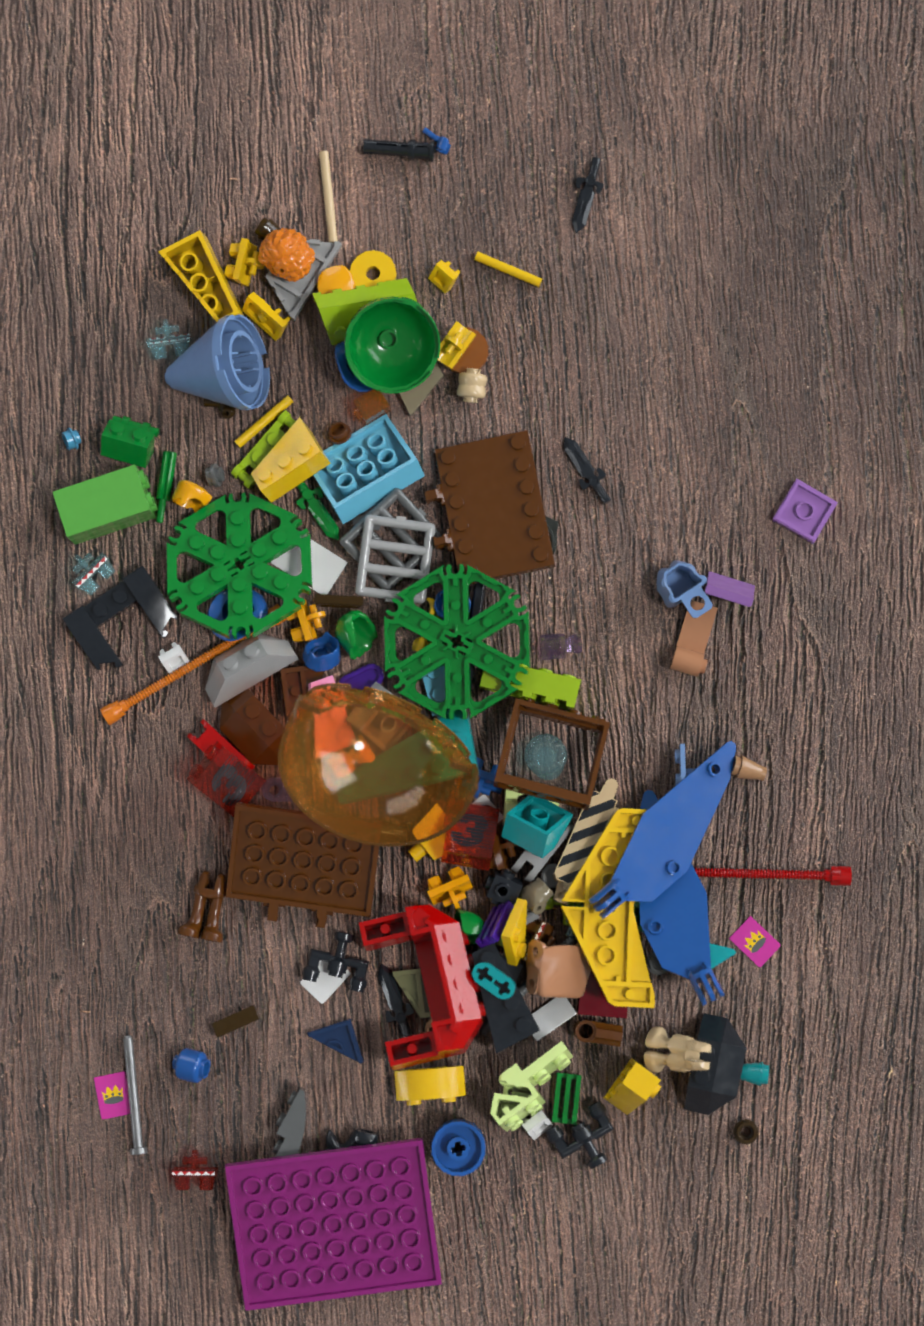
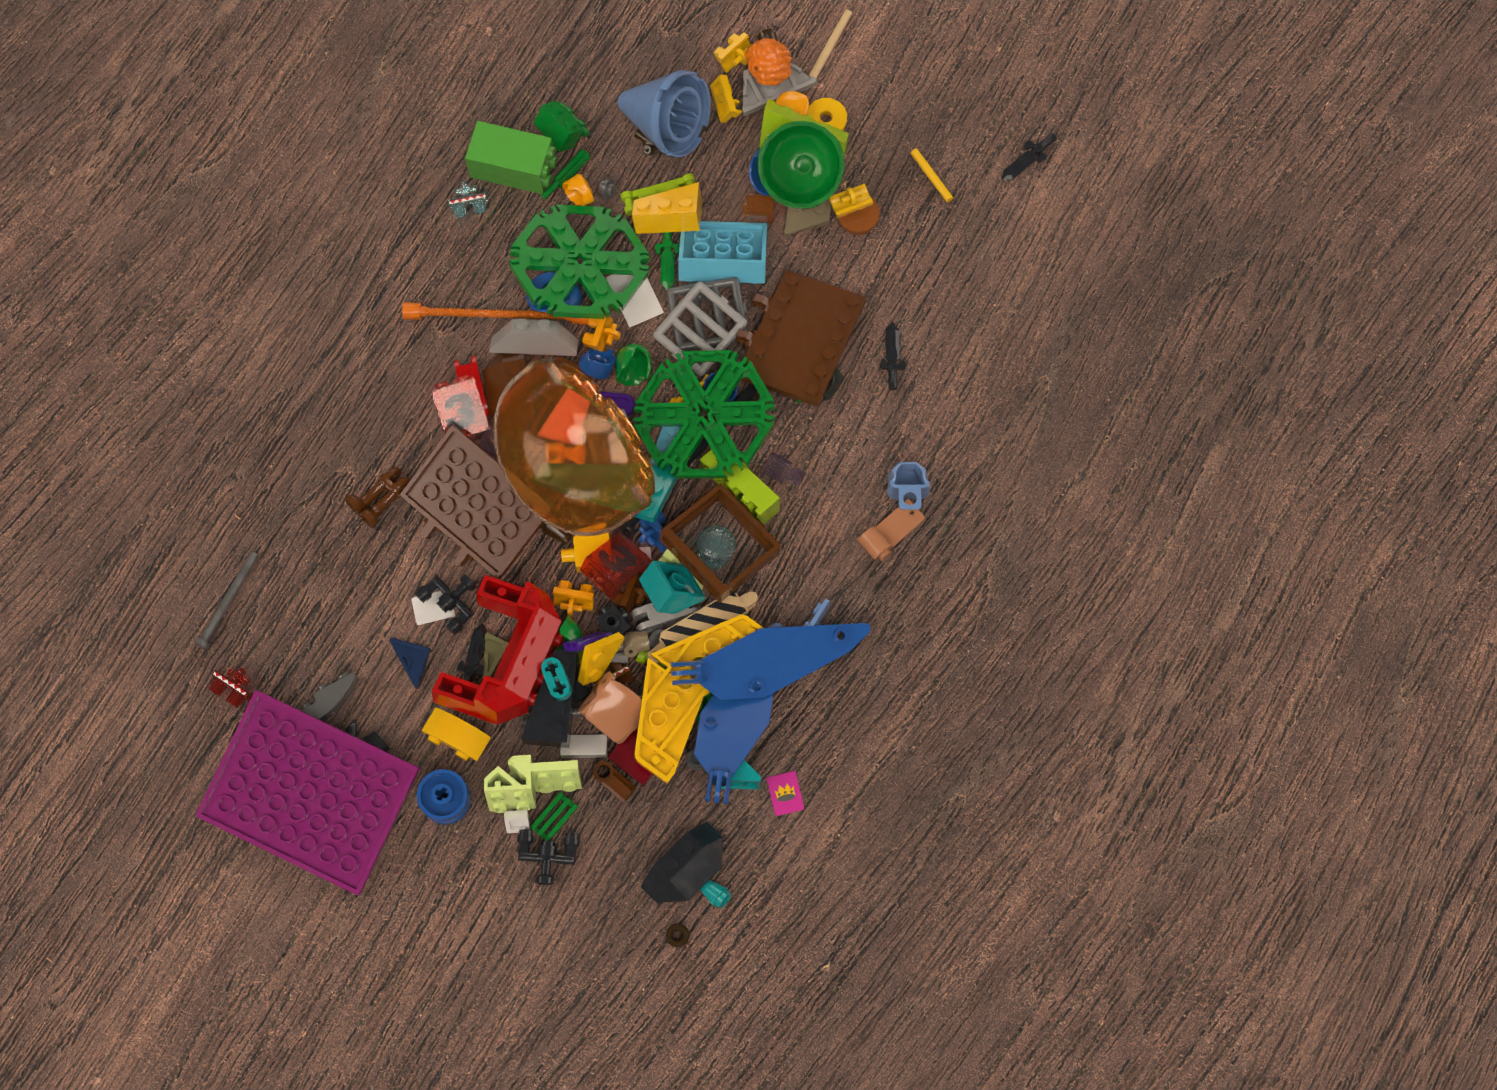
camera: 30 degrees right, 10 degrees down
(71, 439) = (520, 100): dark azure plate -> none
(87, 619) = (438, 235): black wedge -> none
(112, 1095) = (212, 590): dark pink sticker -> none
(157, 344) = (630, 72): clear light blue hips -> none
(173, 658) = (484, 299): white tile -> none
(191, 1065) = (286, 604): blue head -> none
(201, 272) = (698, 38): yellow wedge -> none
(235, 1021) = (343, 594): dark brown piece -> none
(263, 421) = (672, 173): yellow bar -> none
(338, 601) = (637, 334): dark brown tile -> none
(339, 433) = (721, 214): reddish brown plate -> none
(408, 149) = (914, 46): black pin -> none
(442, 142) = (942, 57): blue hand -> none
(443, 276) = (878, 150): yellow tile -> none
(471, 385) = (845, 239): tan piece -> none
(632, 1087) = (610, 836): yellow wedge -> none
(683, 1049) = (666, 836): tan piece -> none
(730, 589) = (943, 507): medium lavender tile -> none
(747, 769) = (867, 654): medium nougat cone -> none
(804, 511) = (1044, 489): medium lavender tile -> none
(836, 875) = (884, 781): red hose -> none

